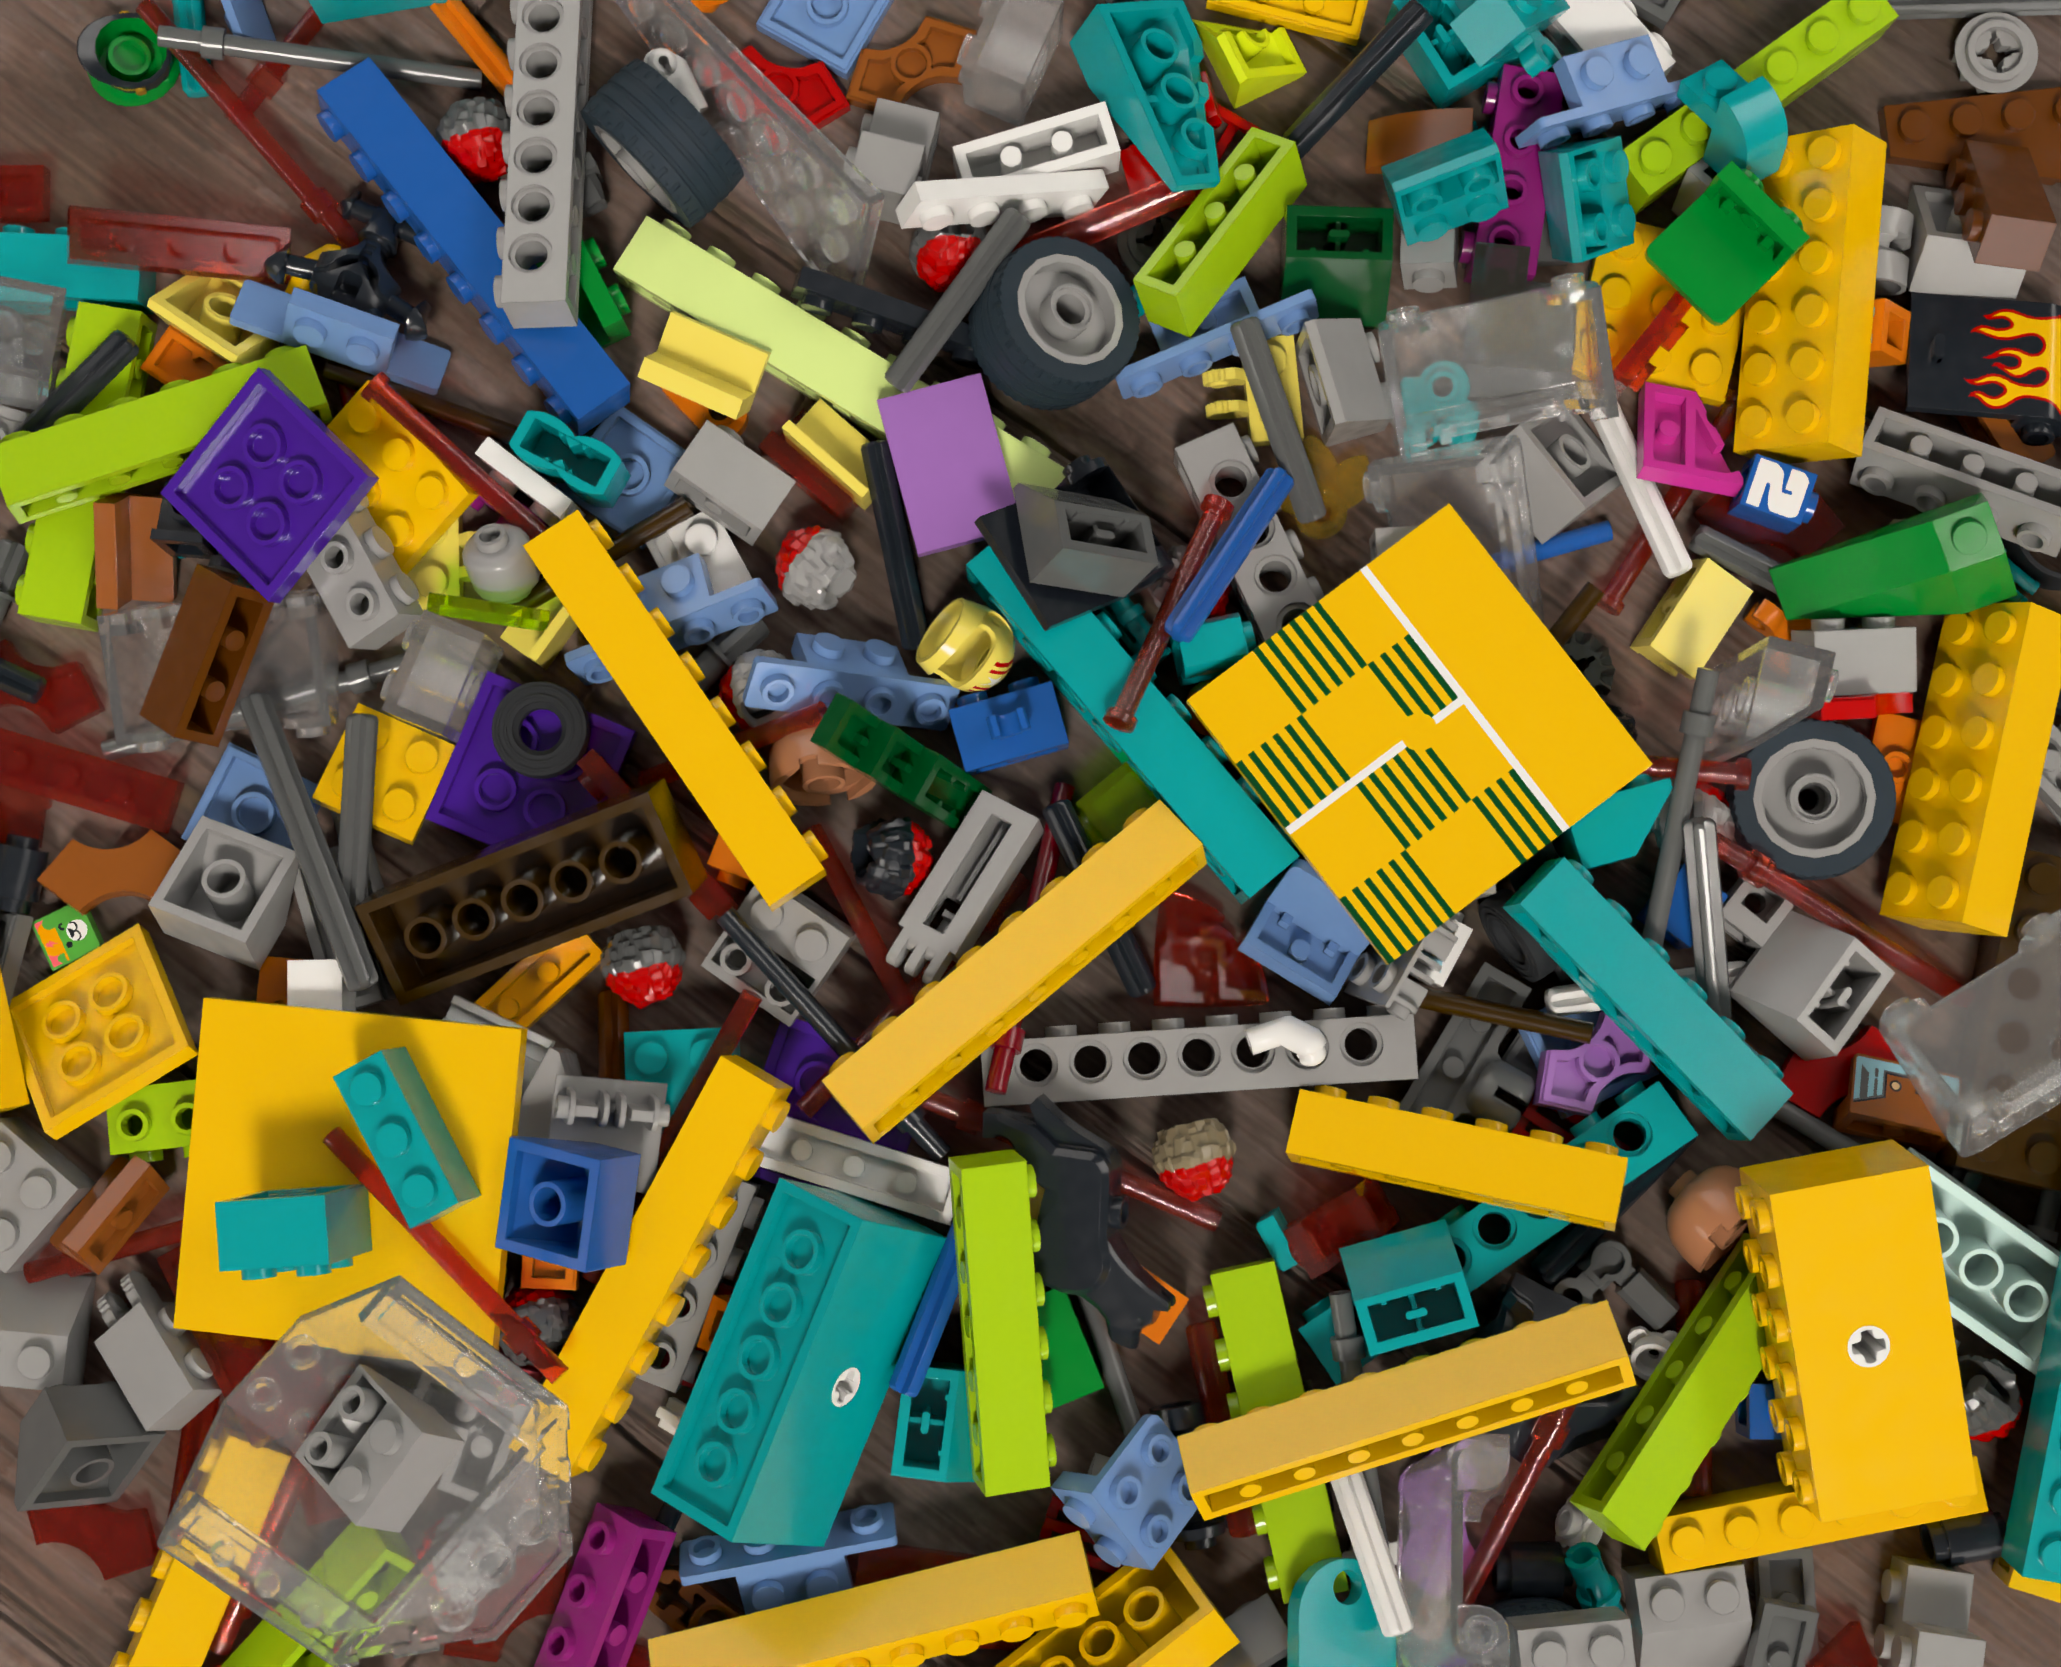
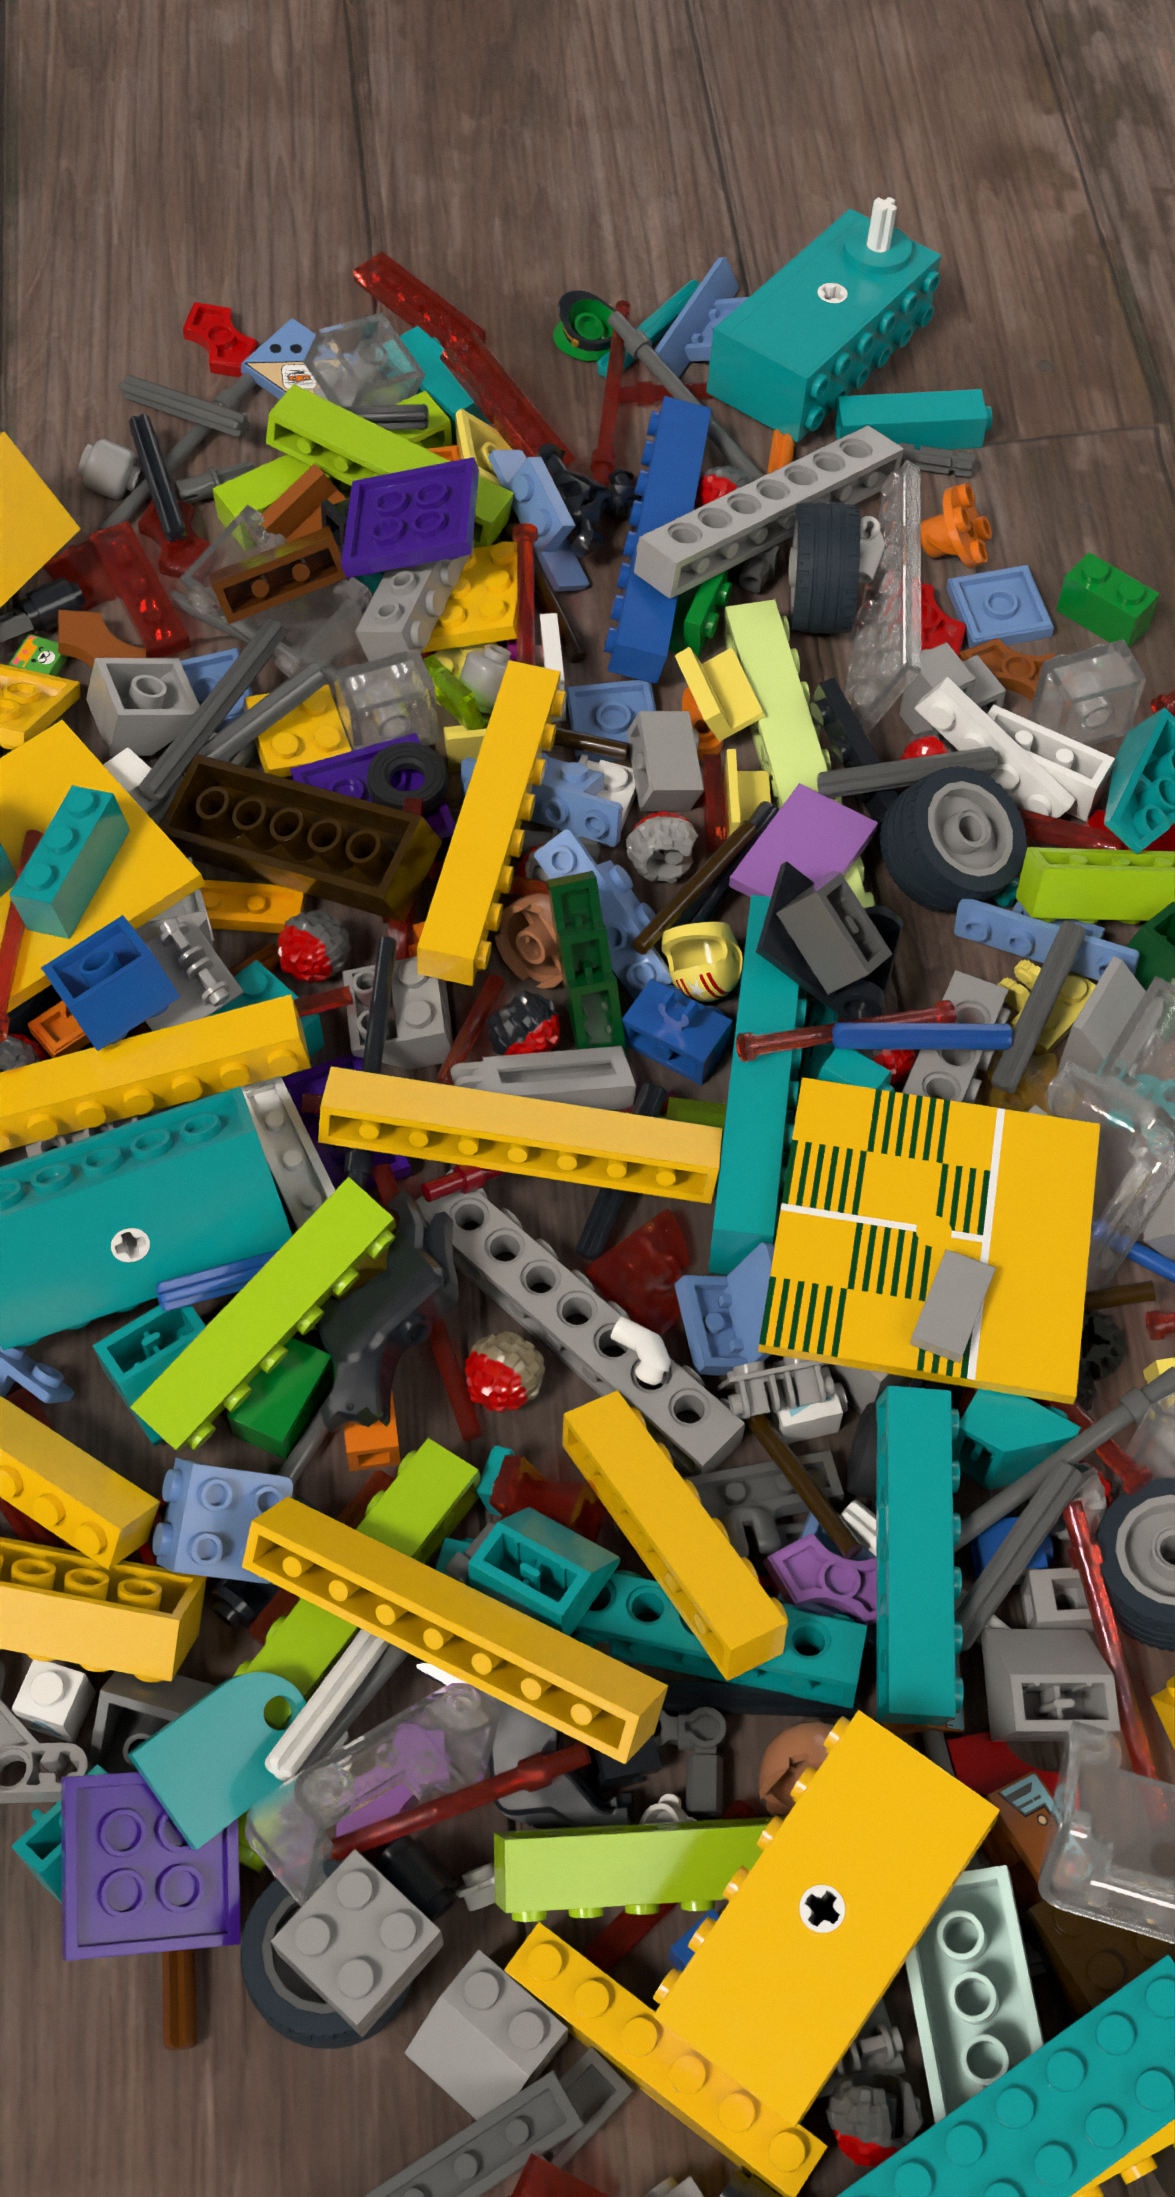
camera: 50 degrees right, 25 degrees down
(559, 456) = (588, 666): teal brick -> none
(898, 591) = (694, 887): none -> dark brown bar
(1500, 786) = (952, 1306): none -> light grey tile
(1593, 1582) = (451, 1917): teal pin -> none

